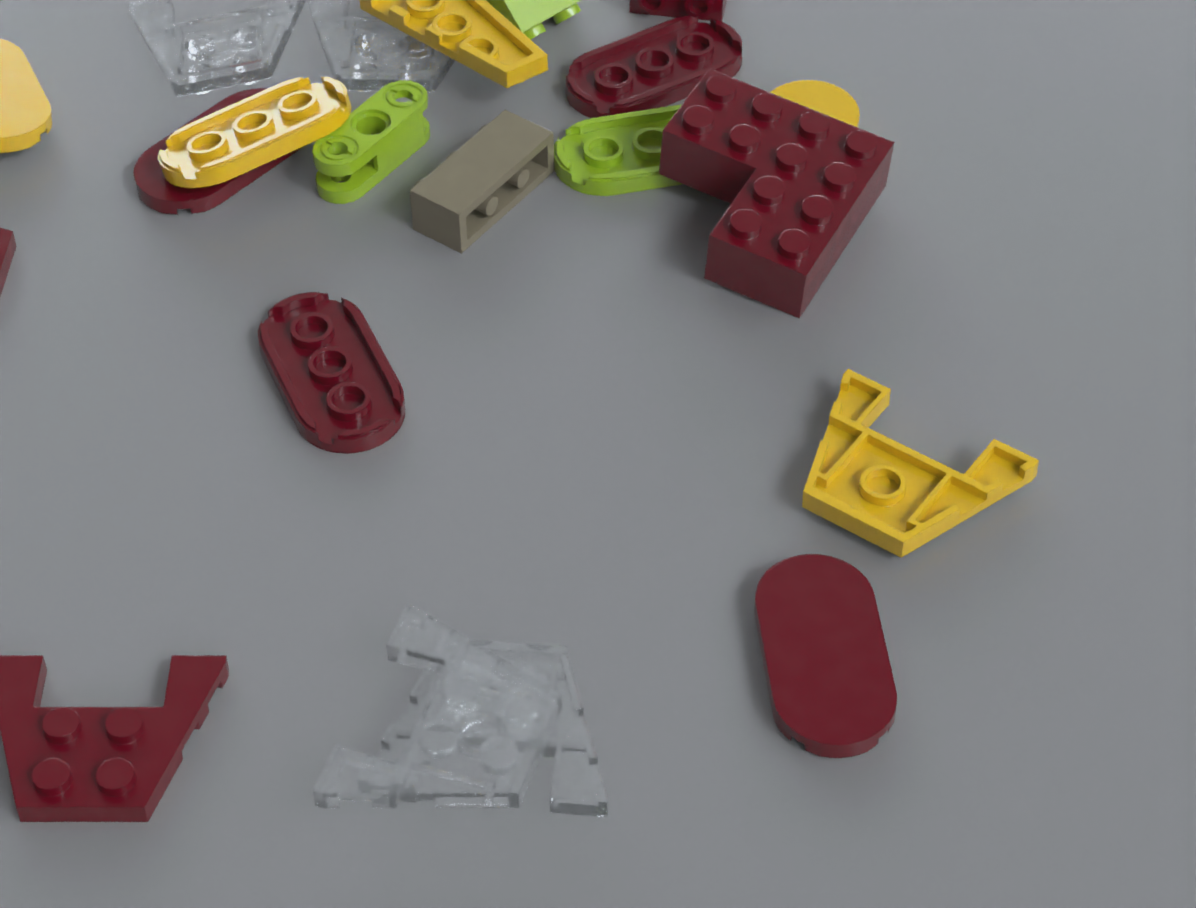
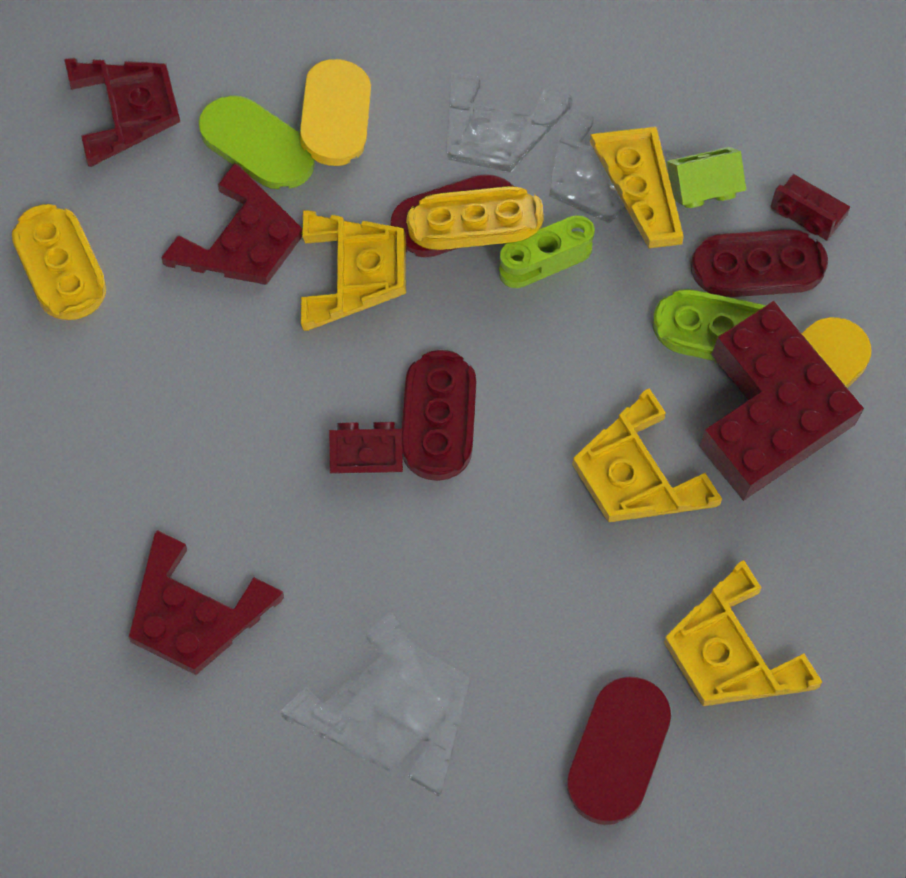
camera: 25 degrees right, 15 degrees up
(132, 236) = (368, 267): none -> yellow wing
(251, 440) = (366, 449): none -> dark red bracket
(482, 181) = (598, 312): dark tan brick -> none
(637, 343) = (626, 477): none -> yellow wing

